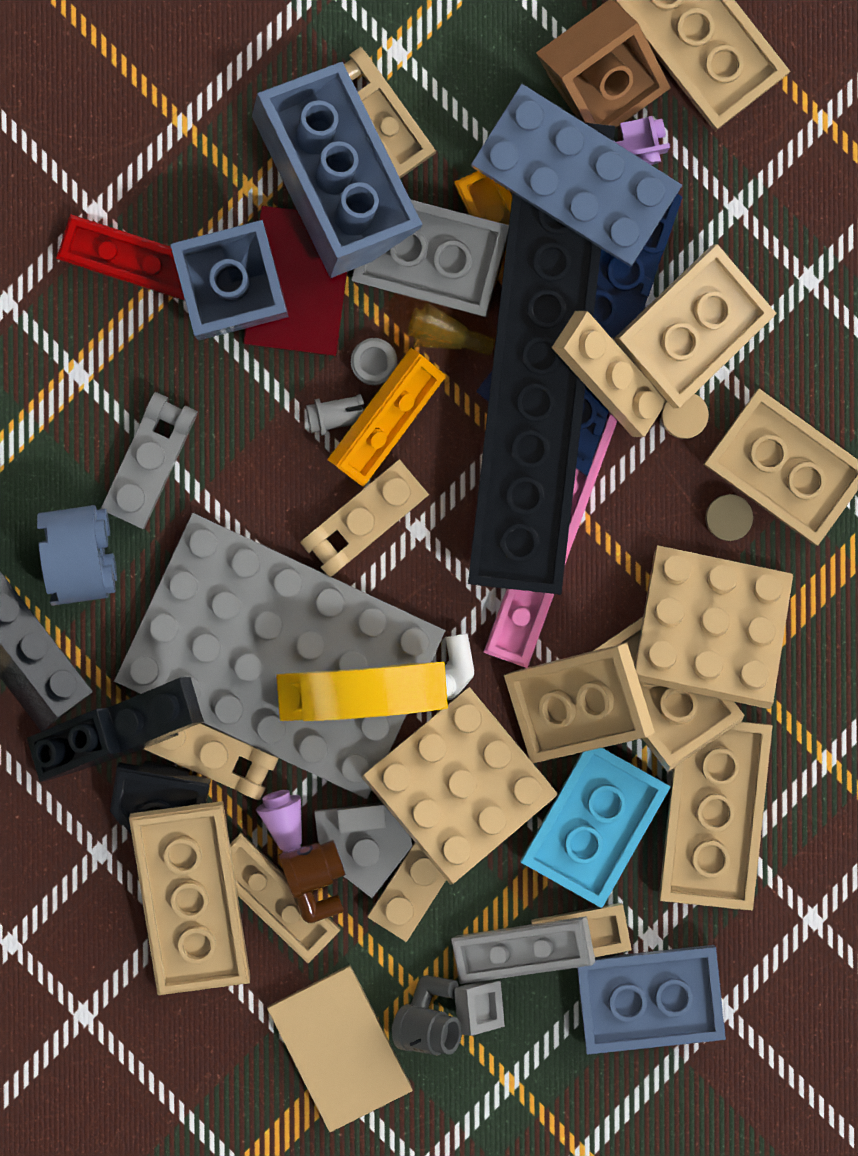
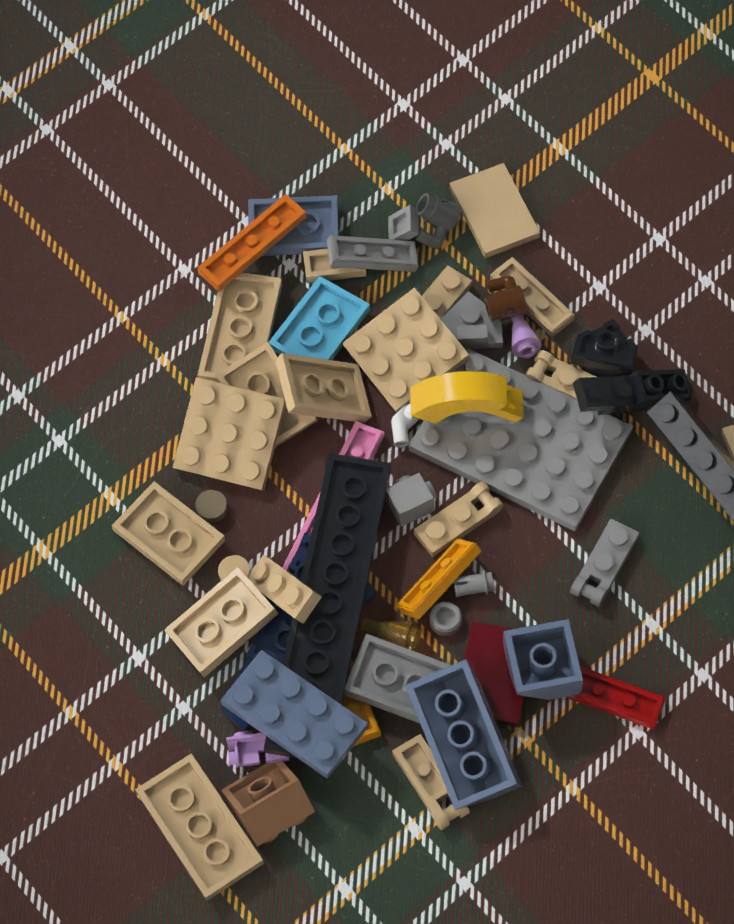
camera: 170 degrees left, 25 degrees down
(75, 555) = (655, 496): sand blue brick -> none
(190, 898) = (587, 295): tan tile -> none
(436, 542) = (410, 498): none -> light grey brick
(711, 953) = (252, 242): none -> orange plate

